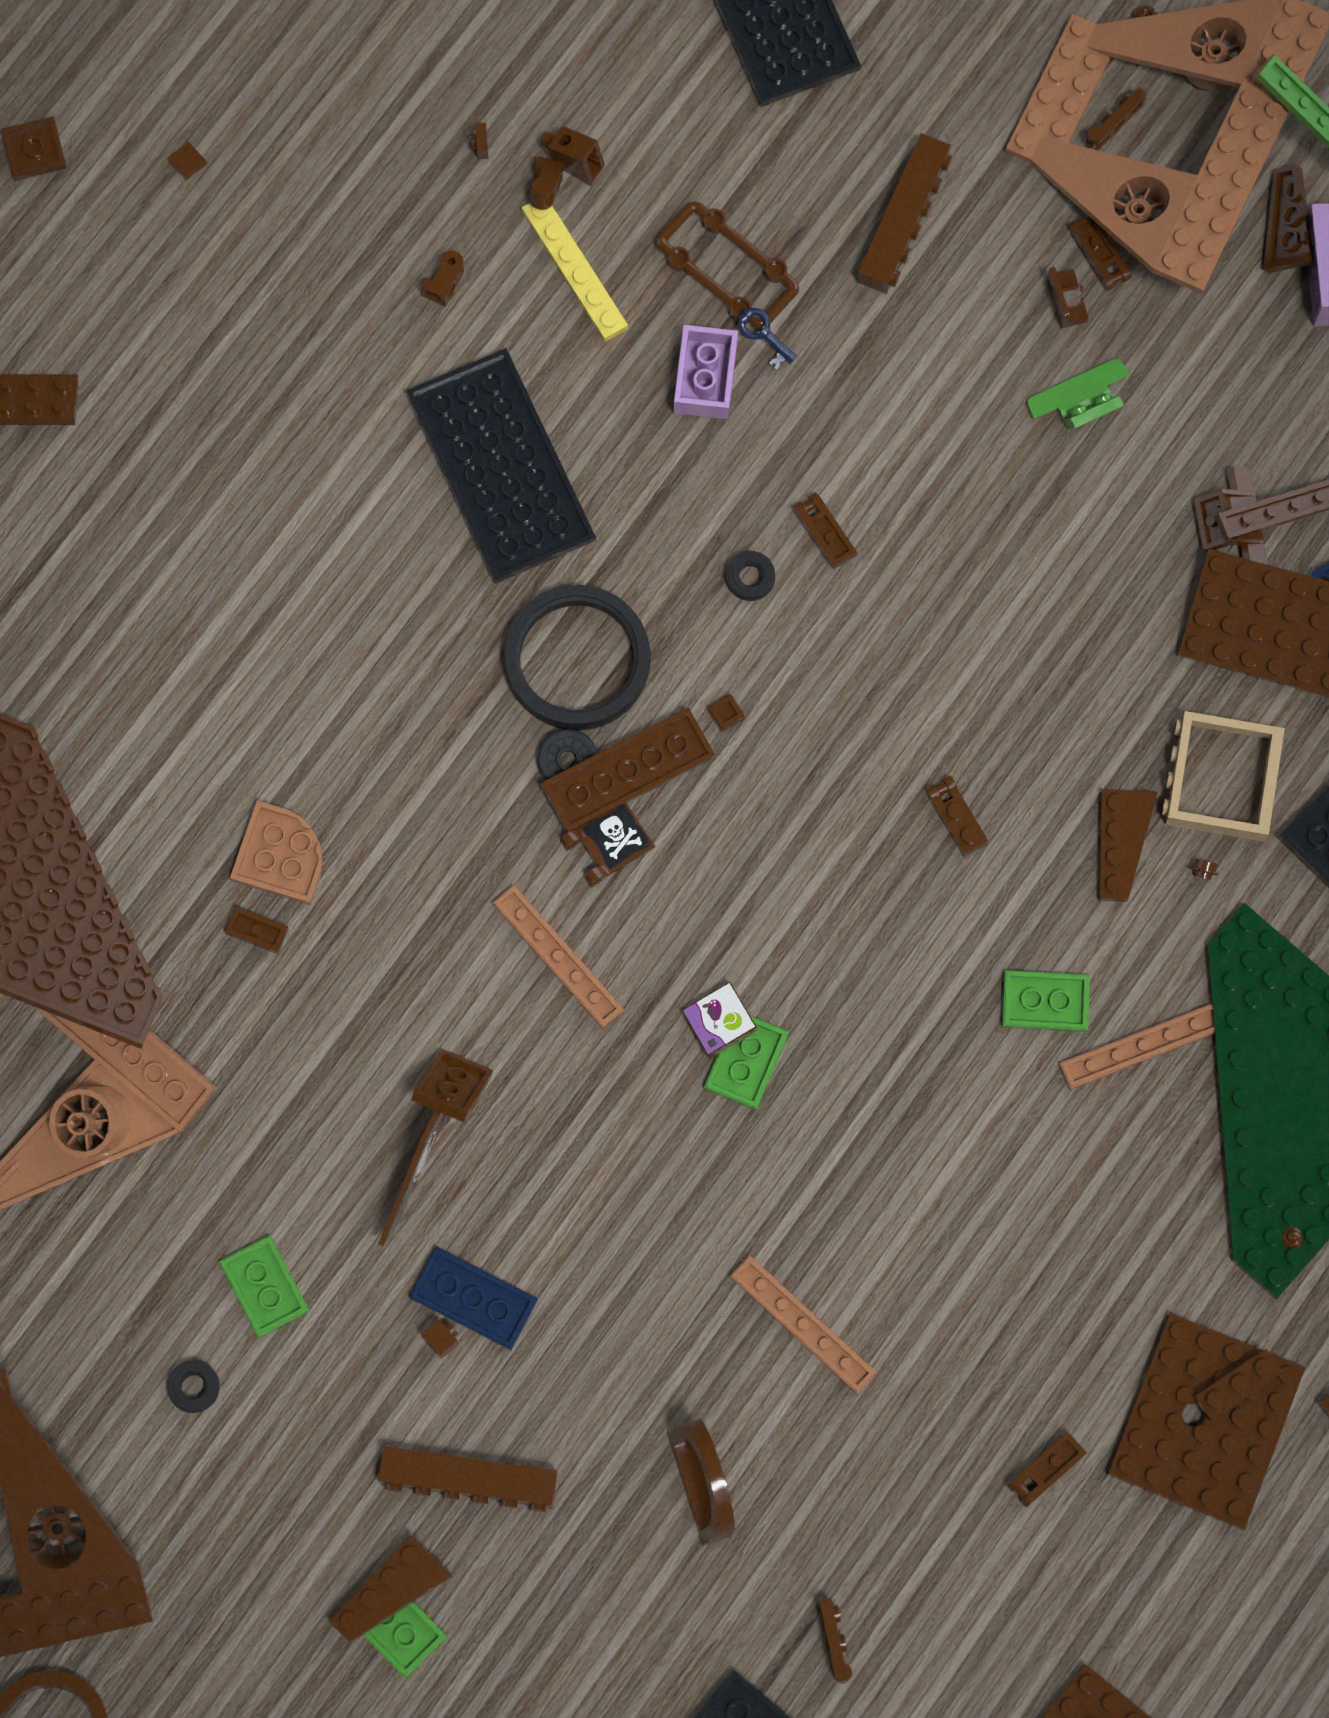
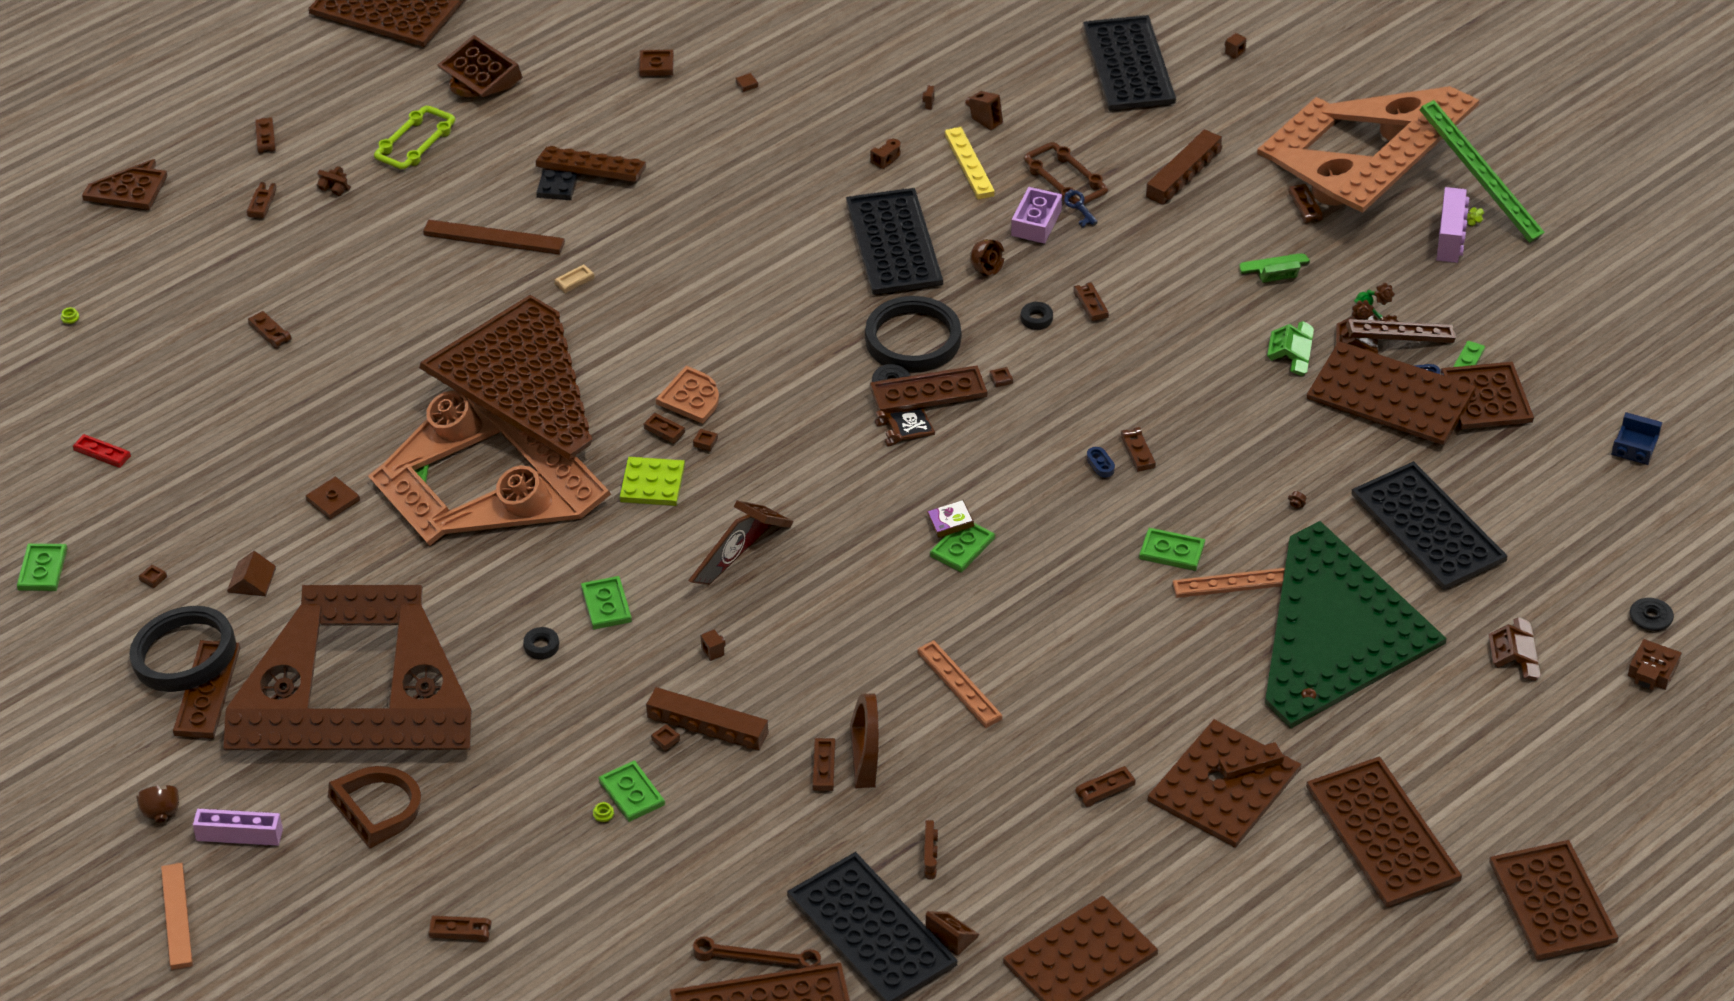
camera: 15 degrees right, 30 degrees down
(36, 647) = (574, 278): none -> tan tile
(267, 1036) = (652, 481): none -> lime plate
(324, 940) = (705, 439): none -> reddish brown plate
(361, 1669) = (603, 812): none -> lime plate
(395, 1585) = (640, 762): reddish brown wing -> none
(418, 1523) = (665, 737): none -> reddish brown plate
(473, 1298) = (743, 632): dark blue tile -> none
(546, 182) = (962, 119): reddish brown leg -> none
(558, 957) = (854, 474): nougat tile -> none
(650, 477) = (987, 256): none -> reddish brown cylinder
(651, 1520) = (824, 764): none -> reddish brown plate
(910, 857) = (1100, 462): none -> dark blue plate
(1067, 297) = (1278, 220): reddish brown panel -> none
(1114, 121) = (1334, 144): reddish brown plate -> none
(1122, 836) = (1245, 478): reddish brown wing -> none
(1139, 559) = (1293, 343): none -> bright green plate
(1218, 825) = (1313, 478): tan window -> none
(1261, 451) = (1364, 302): none -> reddish brown plant
(1288, 223) = (1430, 206): reddish brown wing -> none

